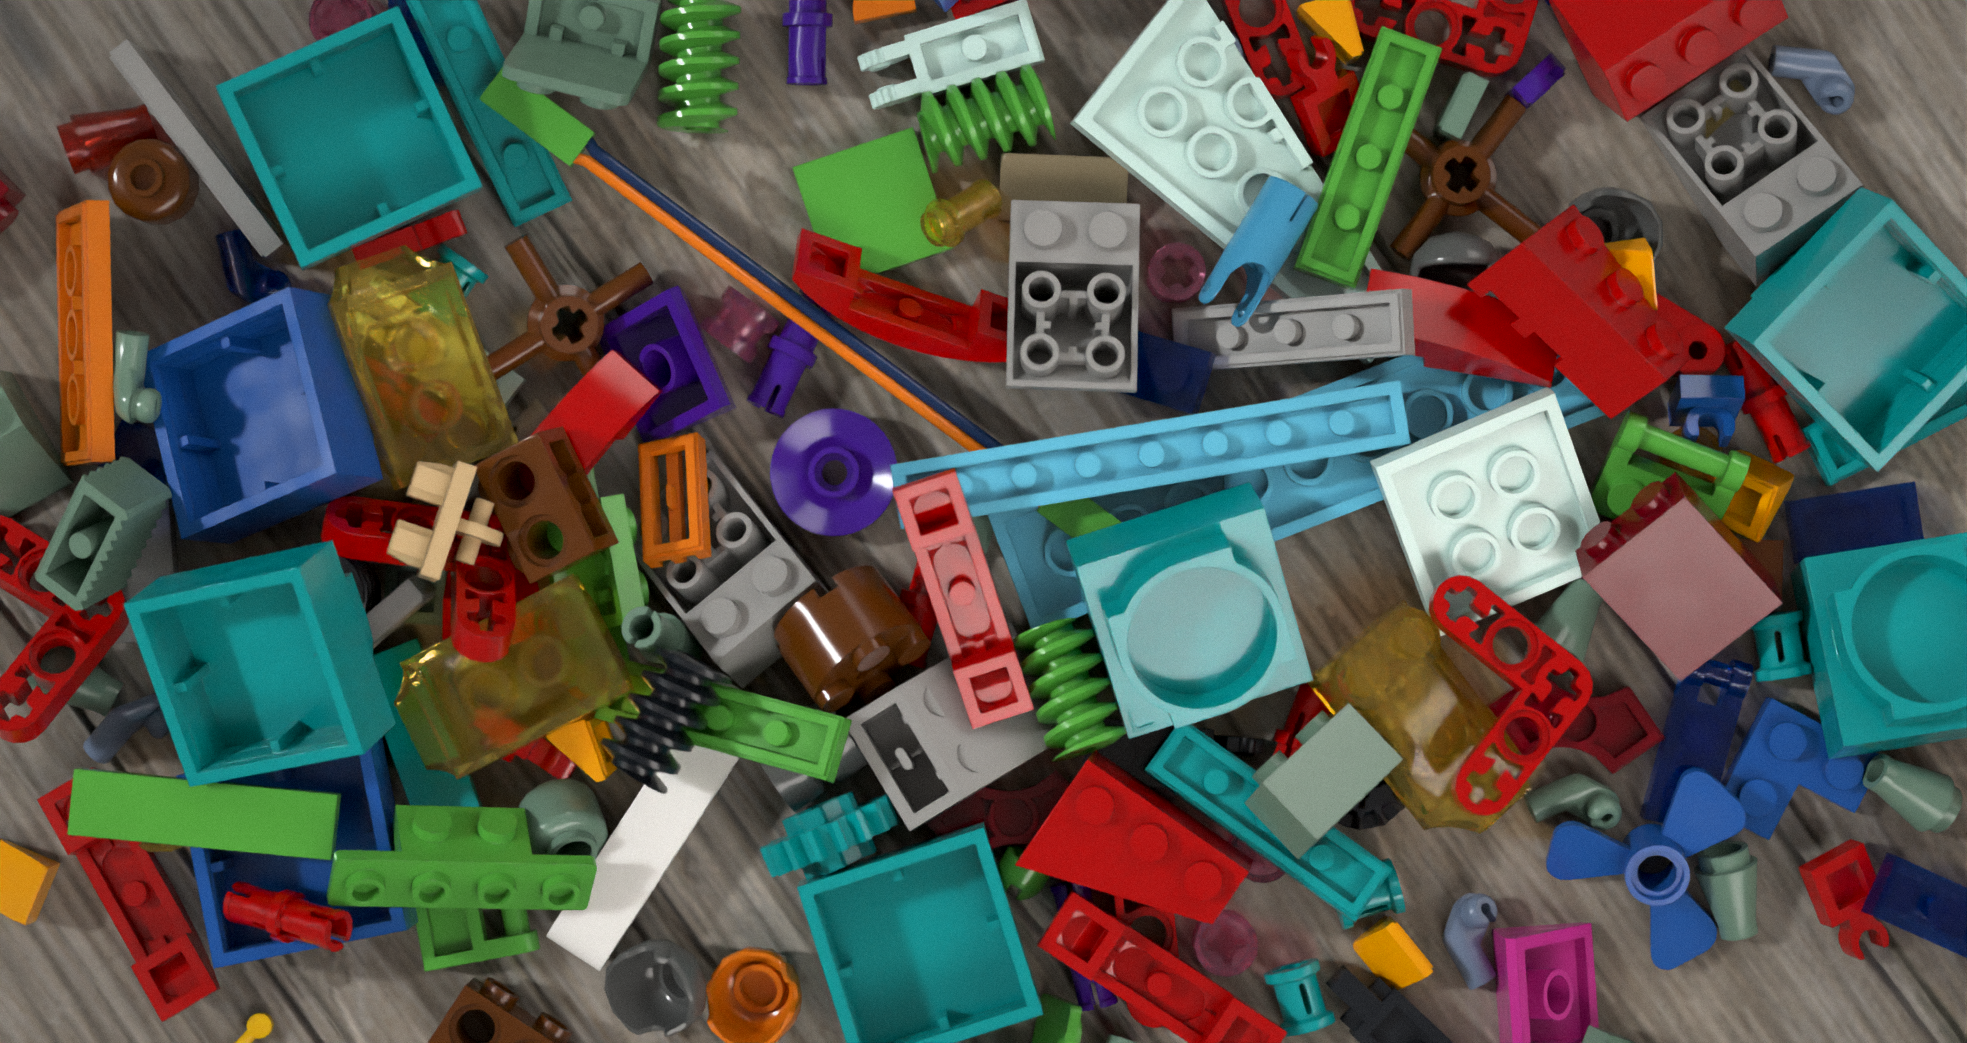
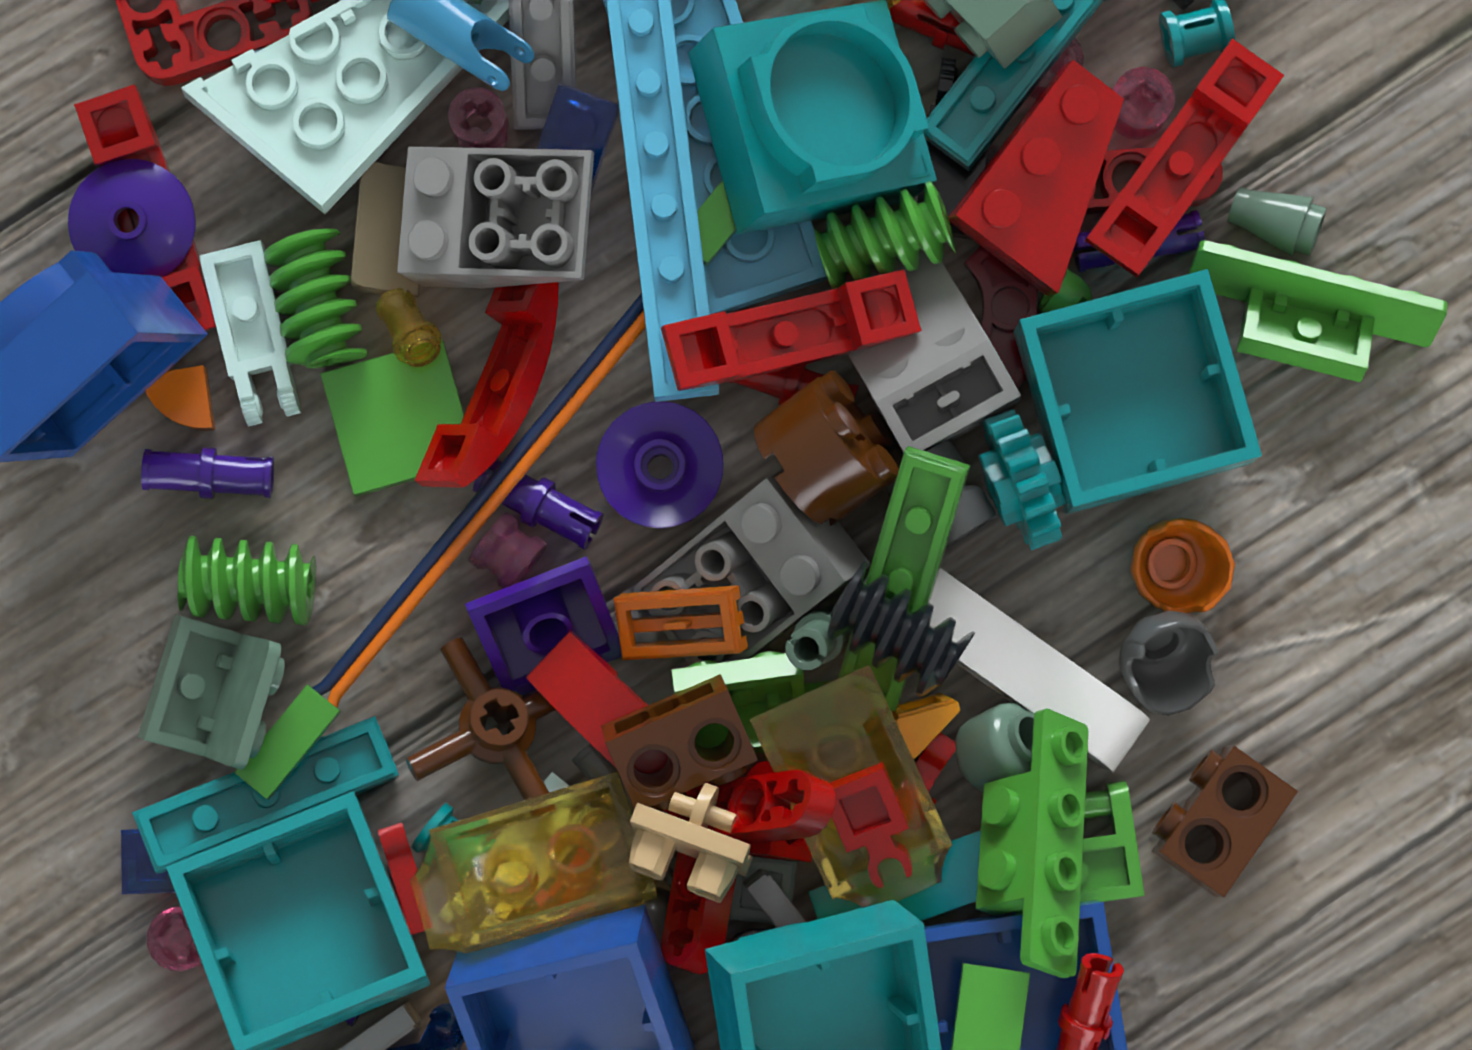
camera: 85 degrees left, 5 degrees down
(477, 697) = (869, 816): none -> red plate

